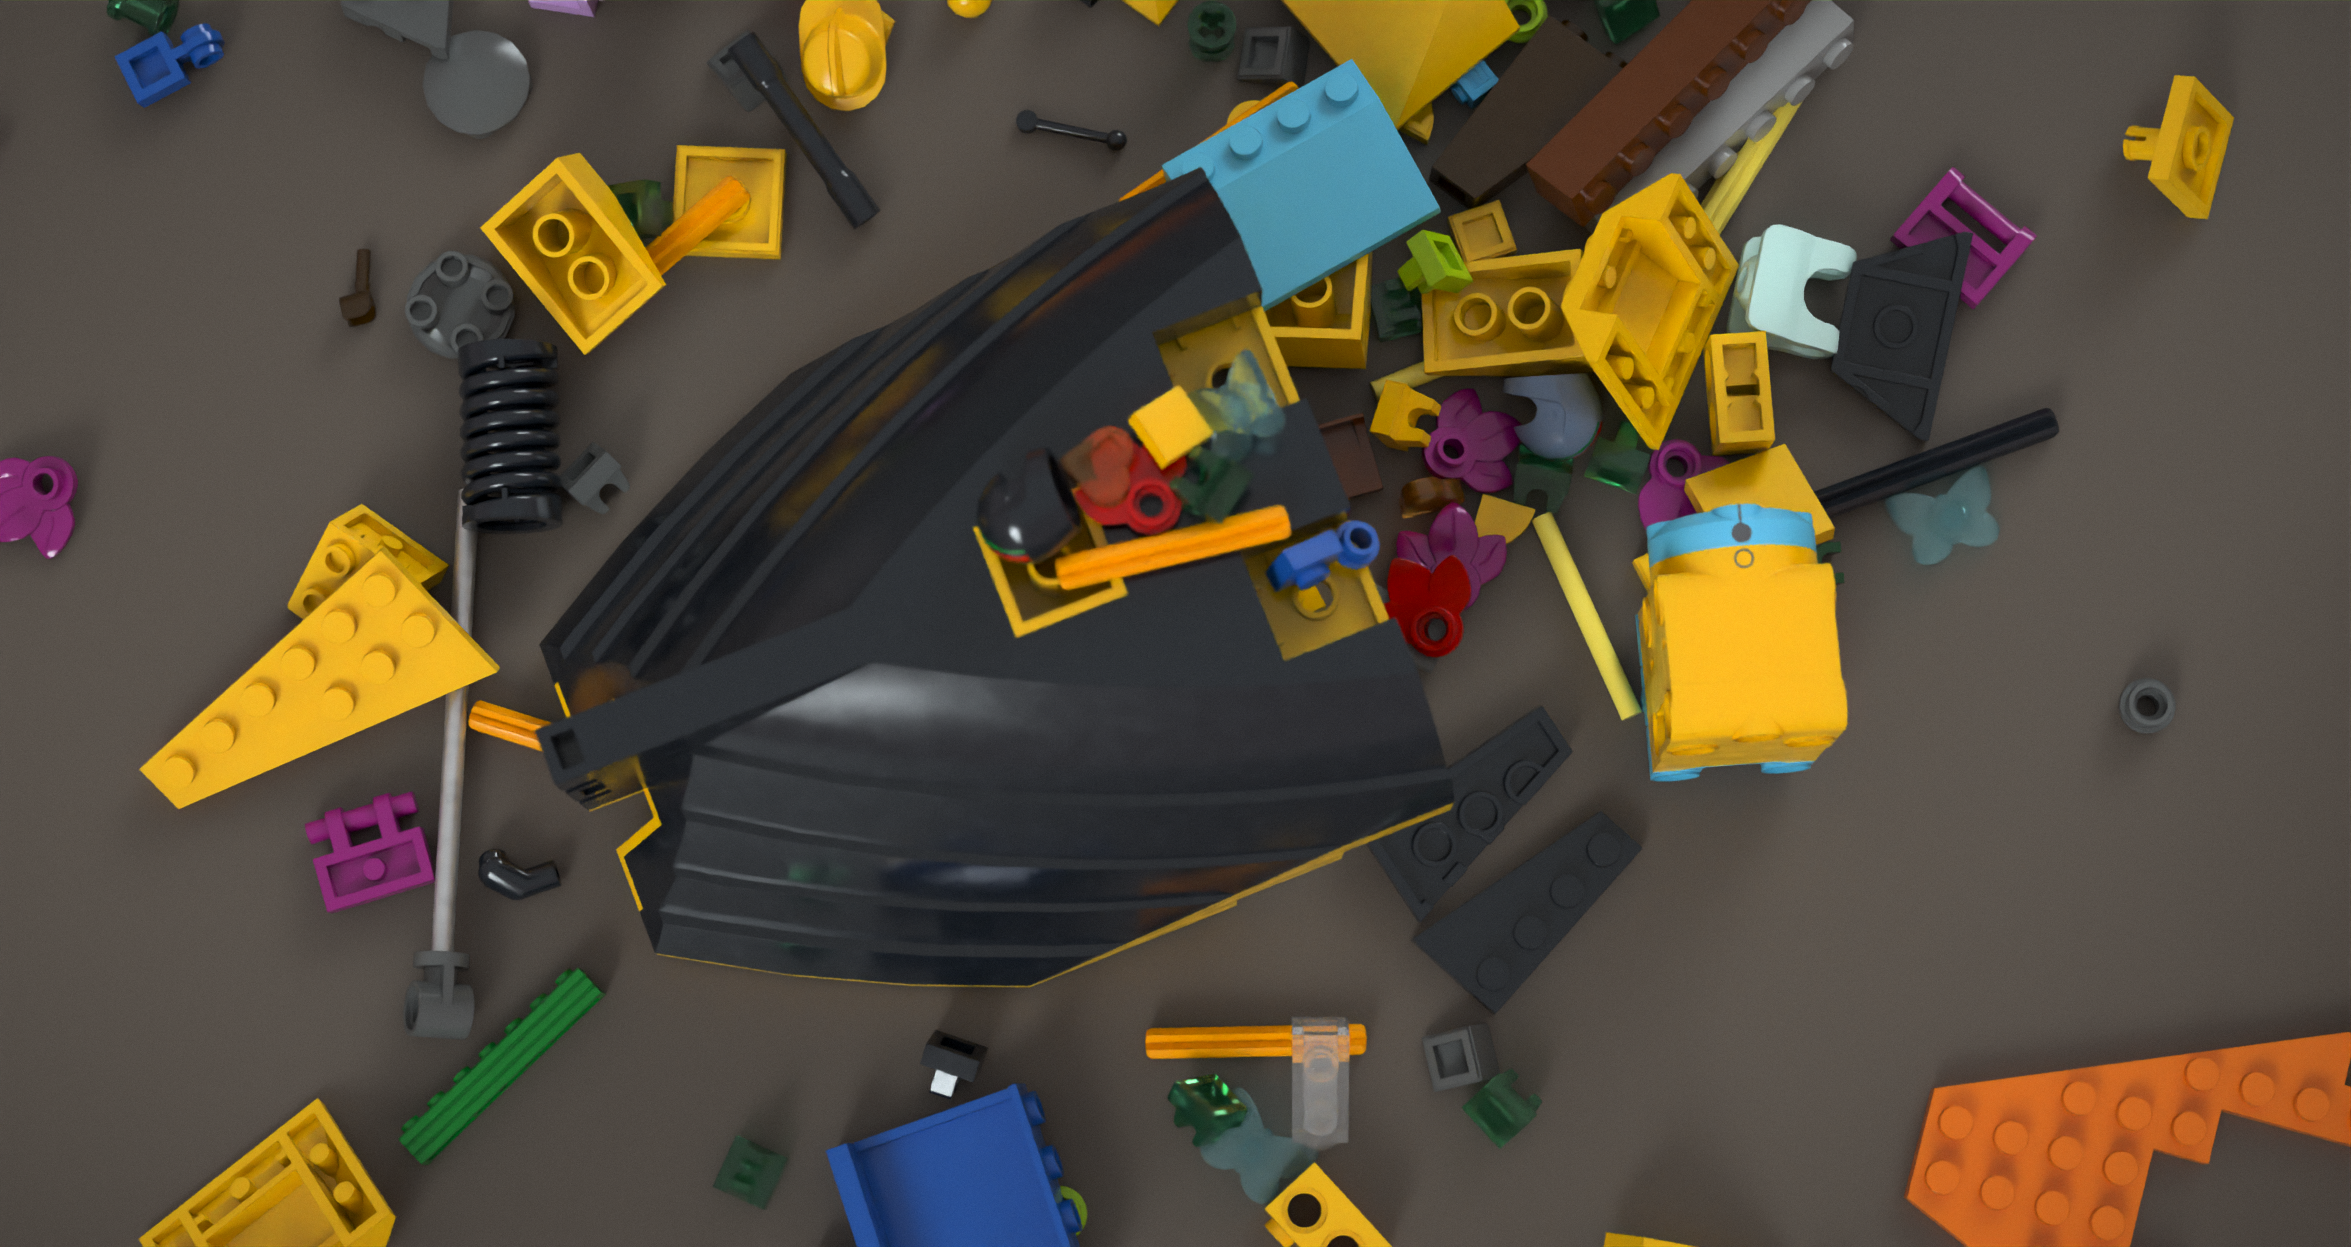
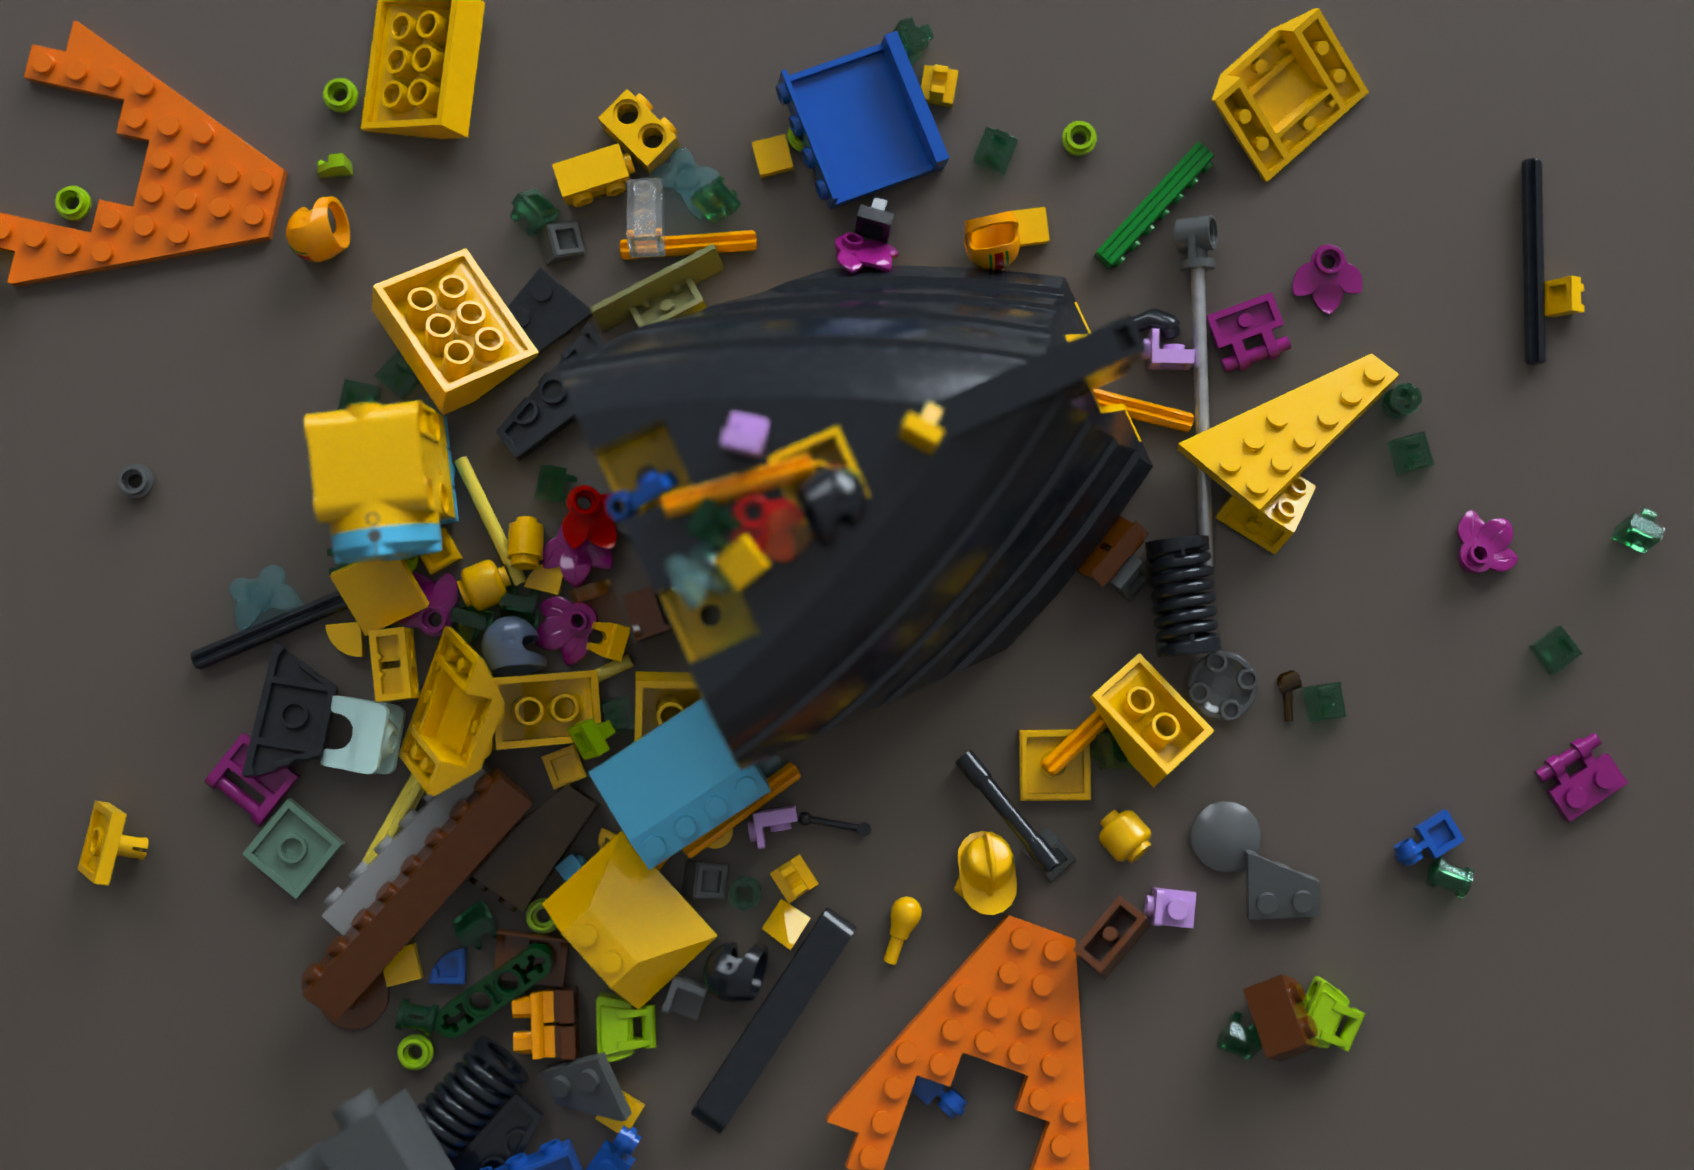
camera: 175 degrees right, 5 degrees up
(128, 718) = (1404, 391): none -> clear green bush
(133, 650) = (1410, 453): none -> clear green tile
(240, 926) = (1327, 284): none -> magenta plate
(306, 276) = (1324, 701): none -> clear green tile
(495, 817) = (1170, 358): none -> lavender bracket
(590, 529) = (1123, 539): none -> reddish brown piece
(597, 1178) = (1079, 128): none -> lime plate
(629, 87) = (1124, 835): none -> yellow head
(705, 1042) = (1032, 226): none -> yellow tile
(765, 1016) = (992, 240): none -> light orange helmet
(884, 615) = (922, 430): none -> yellow tile
(973, 1006) = (855, 252): none -> magenta plate
(1112, 1181) = (772, 156): none -> yellow tile
(1136, 52) = (794, 878): none -> yellow tile
(1156, 619) = (745, 434): none -> lavender bracket
(1159, 140) = (777, 818): none -> lavender bracket
(1297, 950) = (662, 295): none -> olive bracket
(1401, 1161) = (593, 175): none -> yellow brick
(1487, 664) = (551, 484): none -> clear green tile
(1530, 573) = (525, 543): none -> yellow brick
(1597, 512) = (483, 584): none -> yellow head
(1635, 914) = (452, 329): none -> yellow slope
(1724, 855) = (398, 376): none -> clear green tile
(1790, 817) = (358, 393): none -> clear green tile
(1815, 445) = (347, 638): none -> yellow tile
(1826, 1199) = (337, 165): none -> lime tile
(1860, 1082) = (311, 234): none -> light orange helmet
(1900, 130) = (293, 848): none -> sand green plate
(2268, 1161) = (64, 199): none -> lime plate

